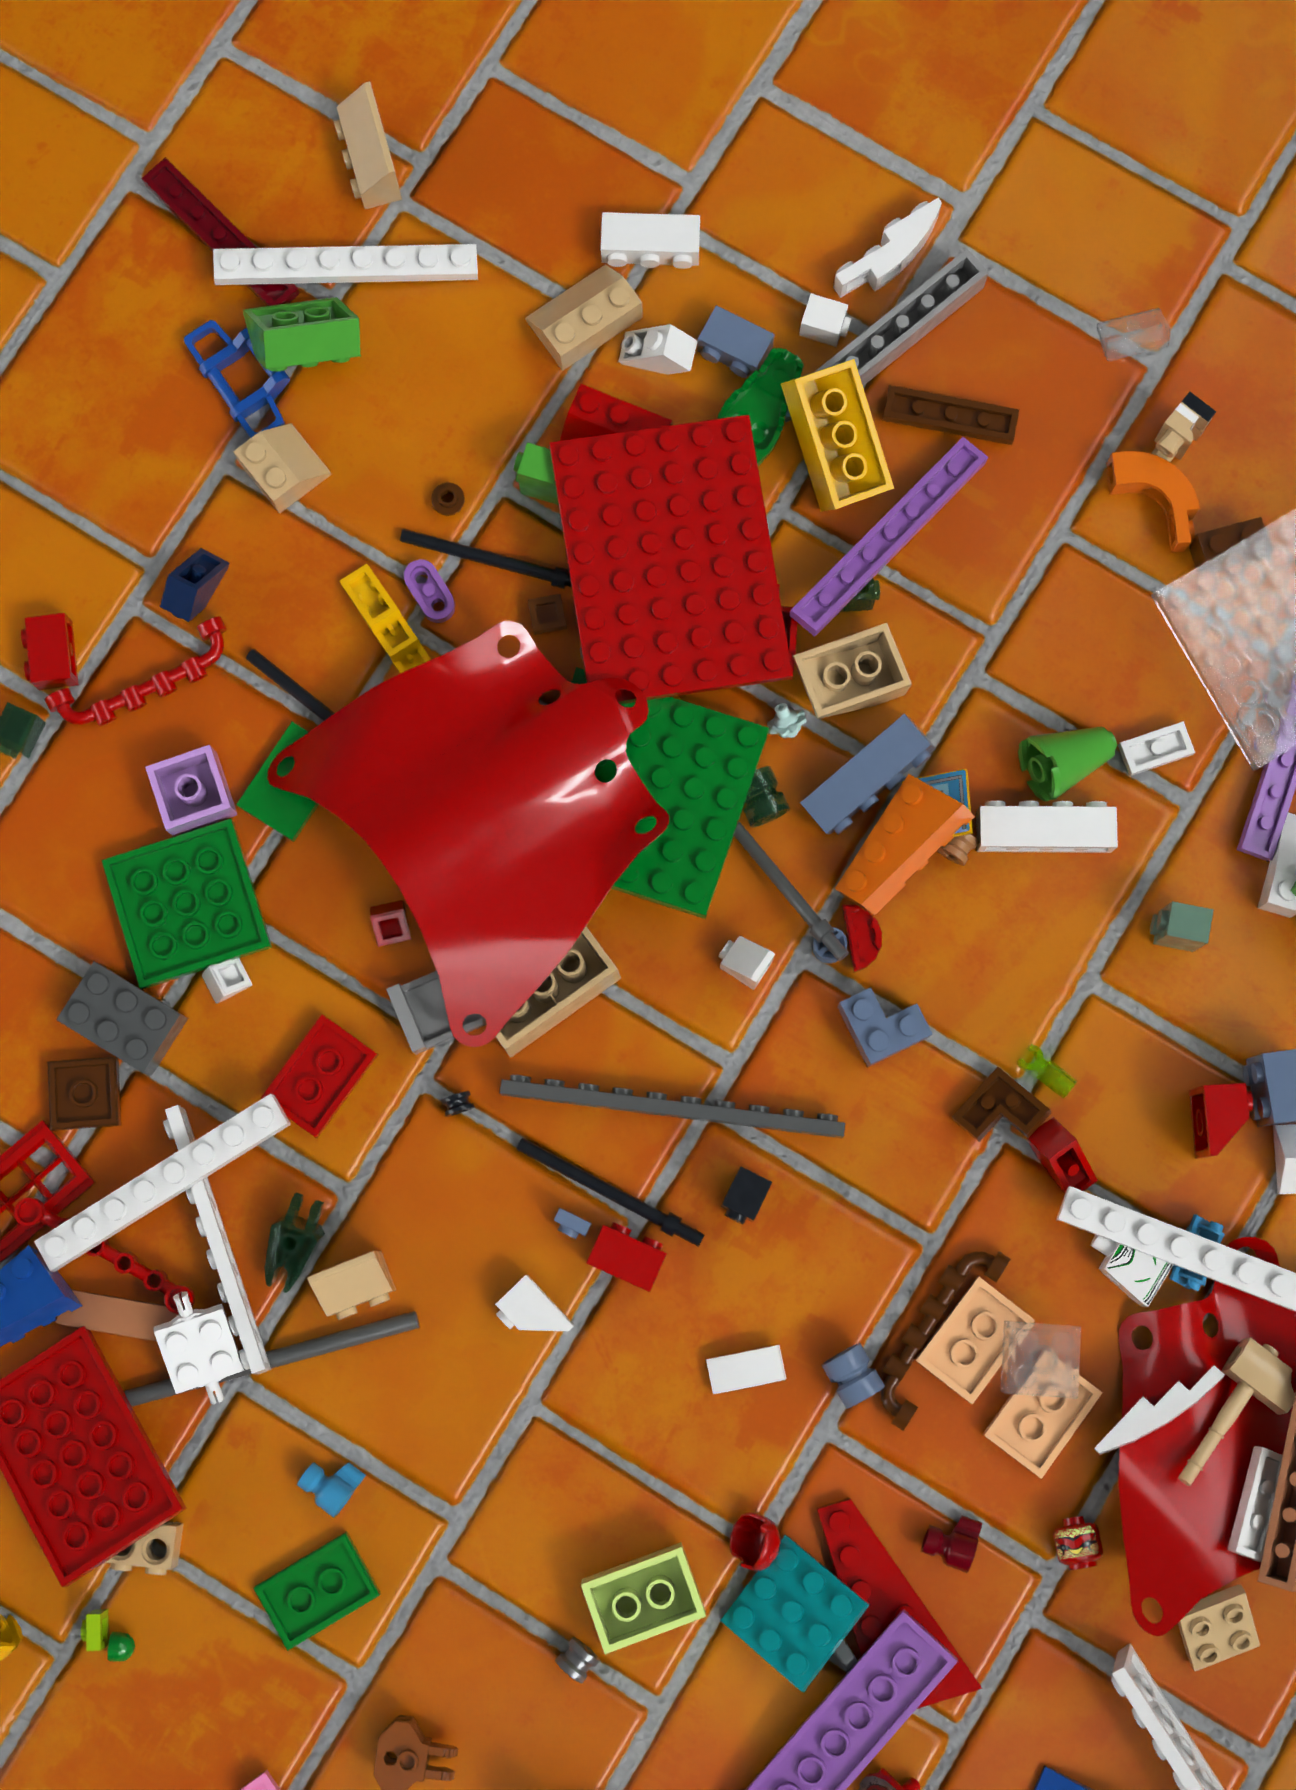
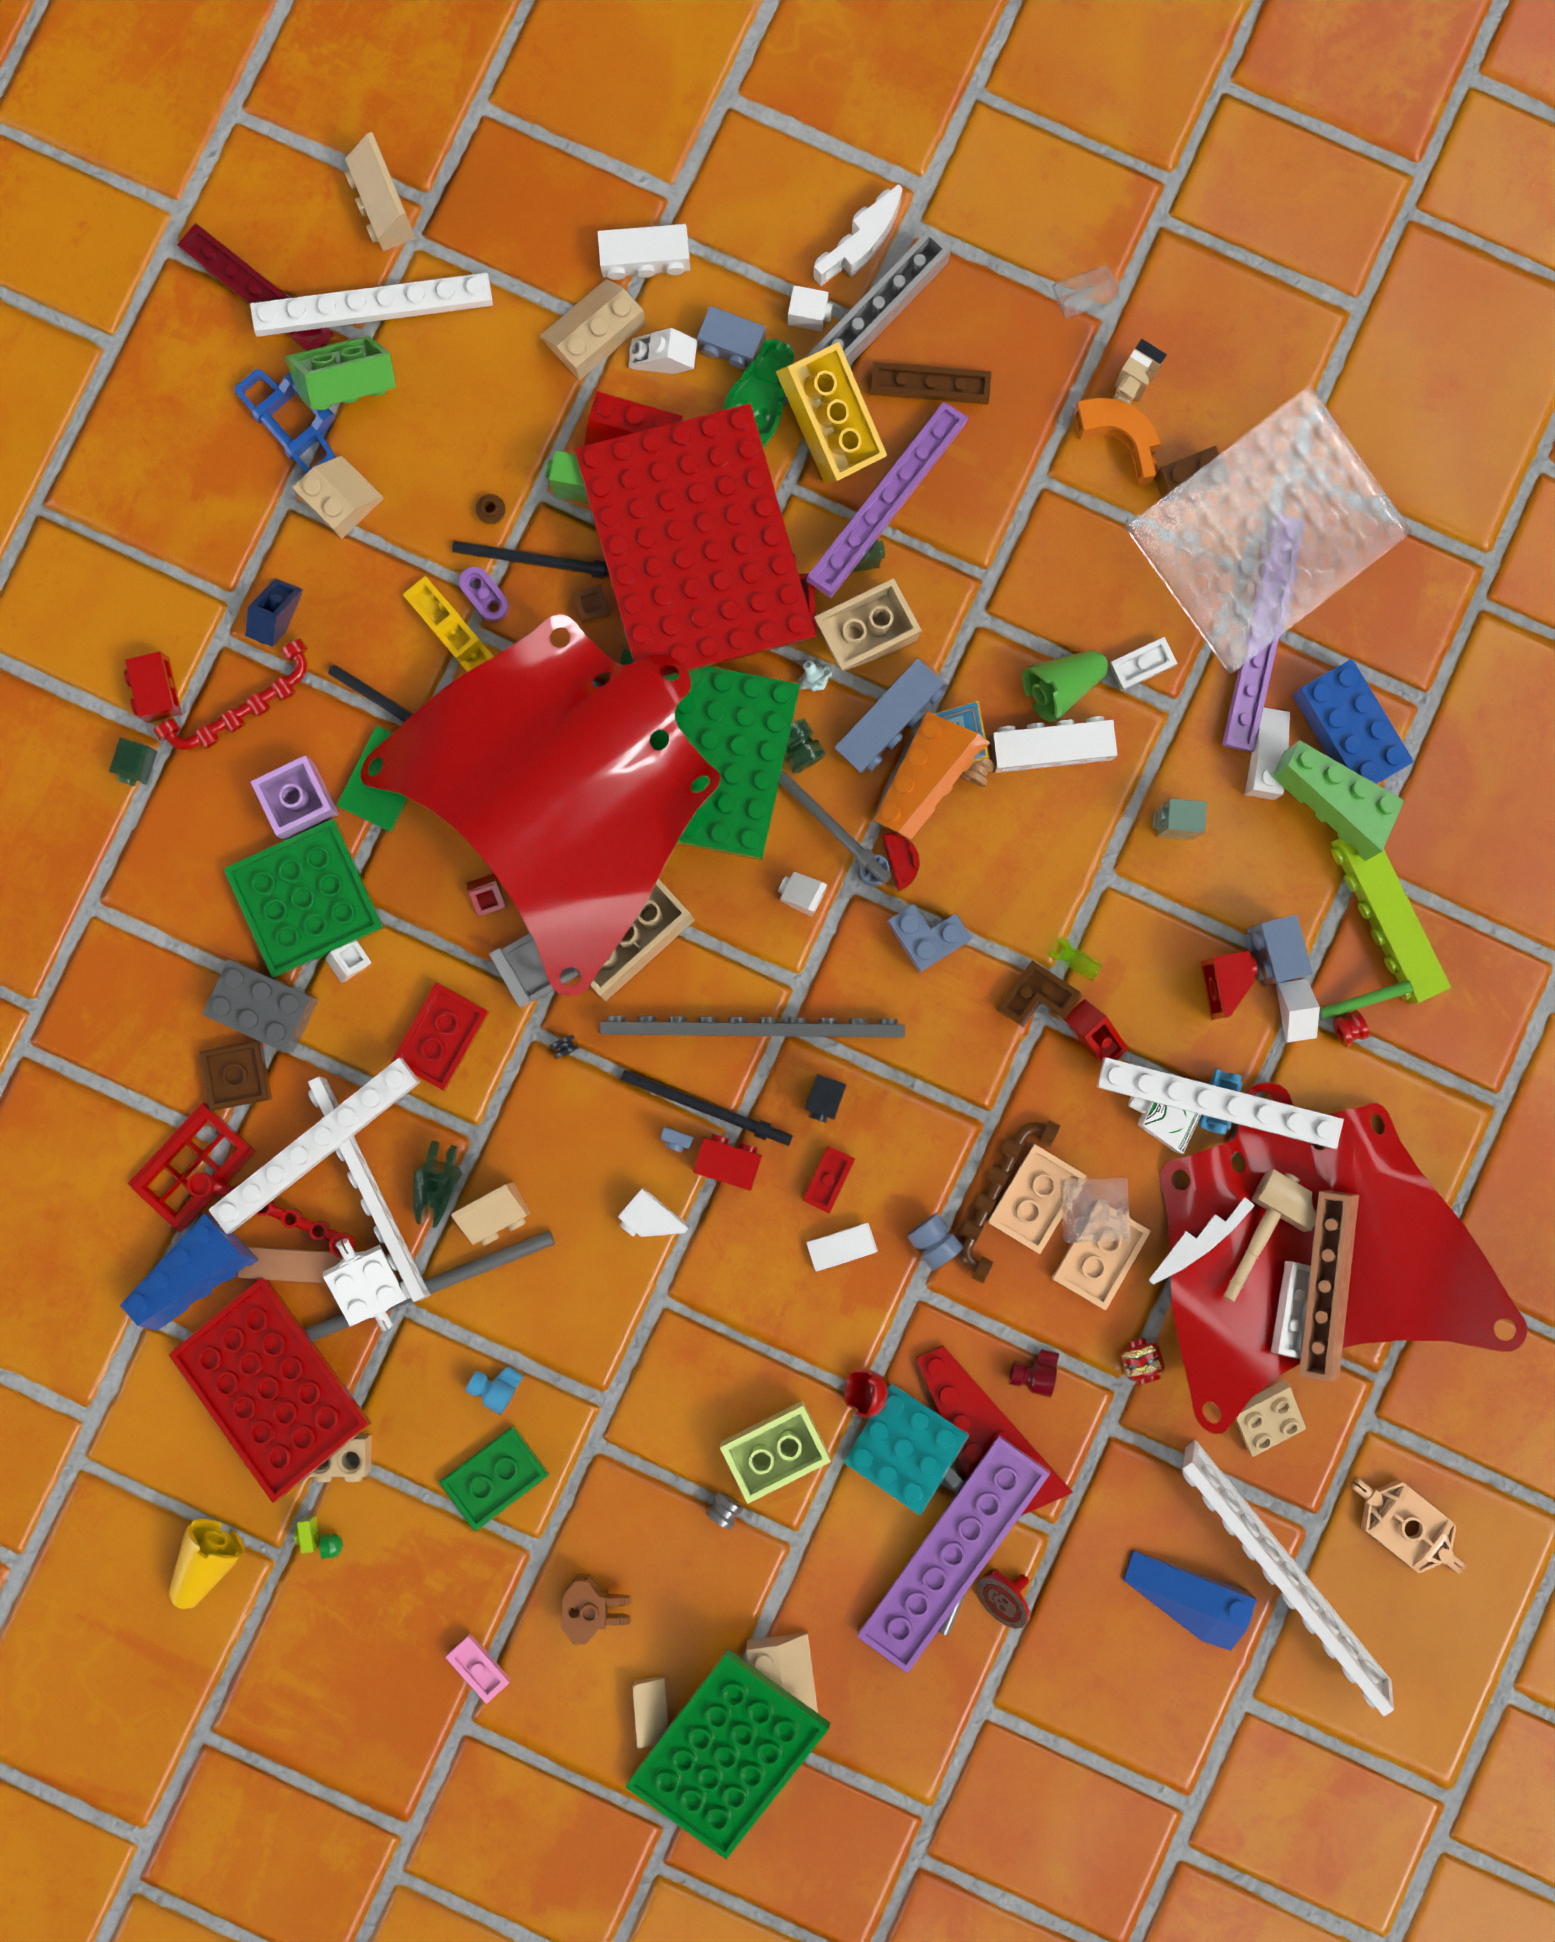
camera: 10 degrees left, 5 degrees up
(739, 1290) = (828, 1179): none -> red plate

